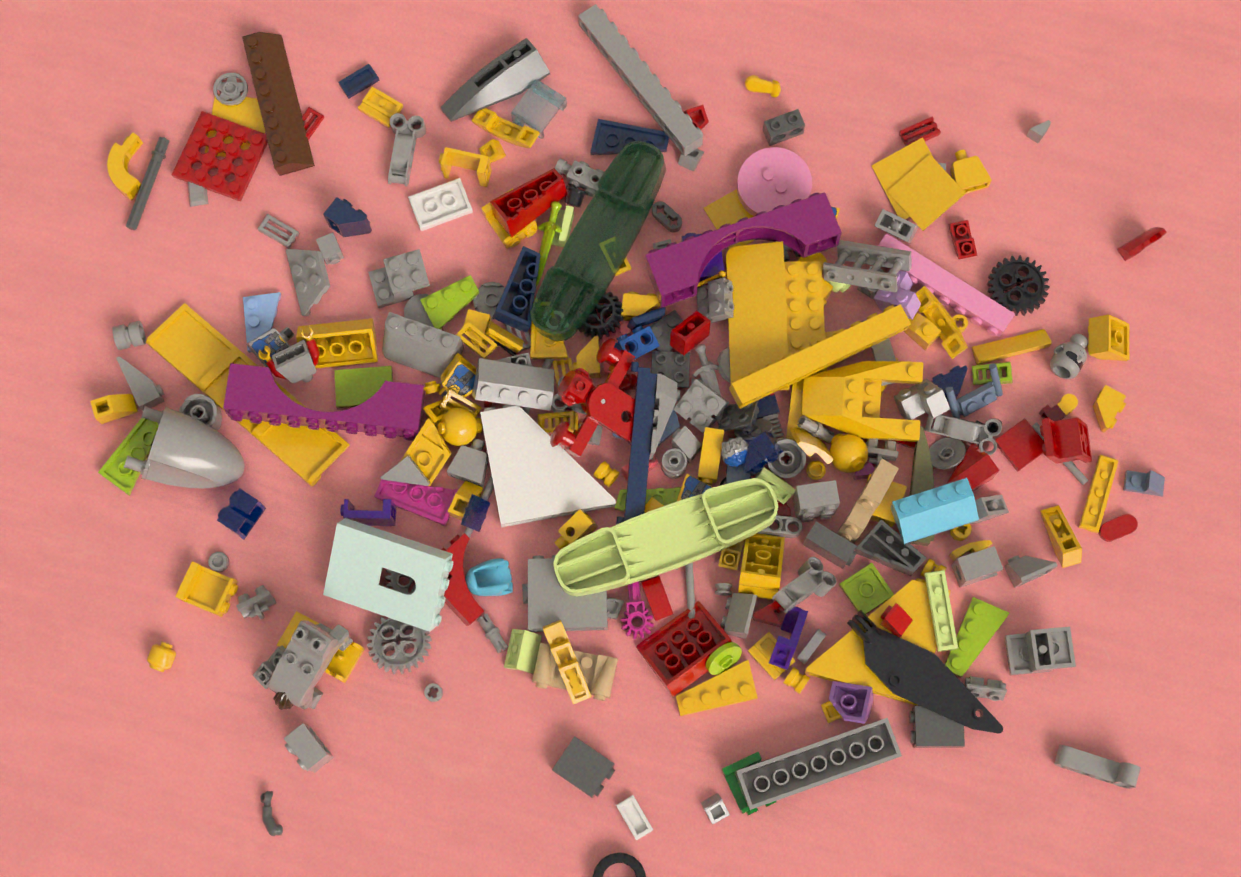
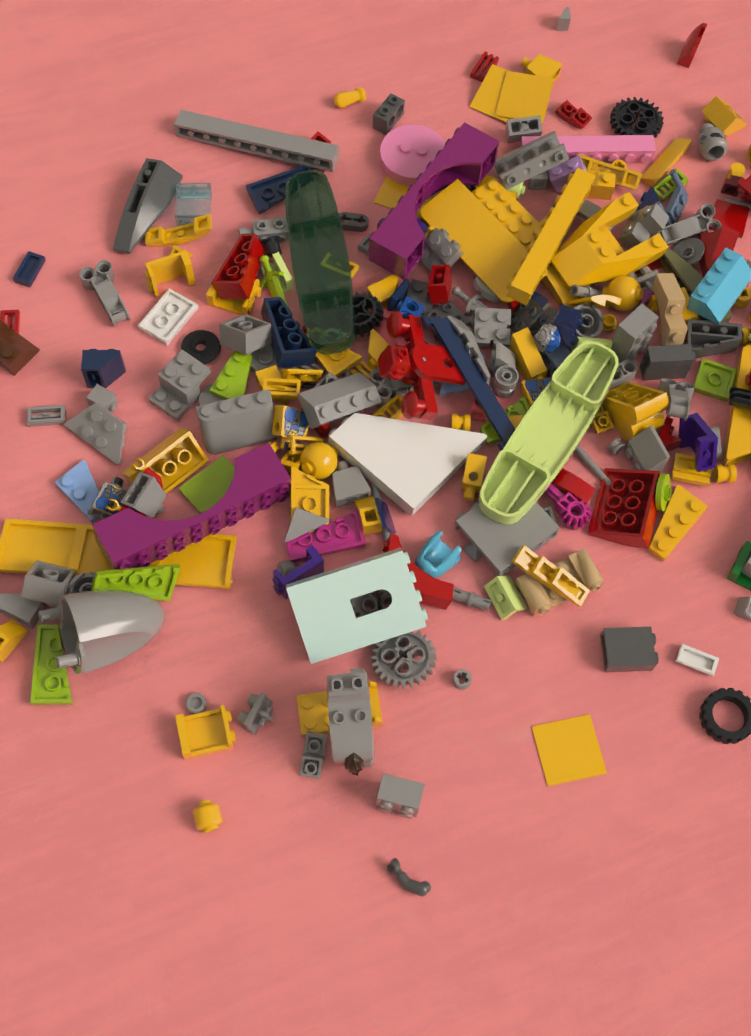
camera: 45 degrees left, 10 degrees down
(173, 384) = (46, 582): none -> light grey brick
(241, 513) = (188, 646): clear blue piece -> none
(244, 436) = (150, 581): none -> lime wing
(368, 501) = (286, 567): none -> light grey piece
(380, 106) = (62, 276): yellow plate -> none
(443, 241) = (202, 337): none -> black wheel
(472, 810) = (569, 750): none -> yellow piece
(484, 269) = (245, 334): none -> light grey brick
(691, 160) = (337, 176): light grey slope -> none

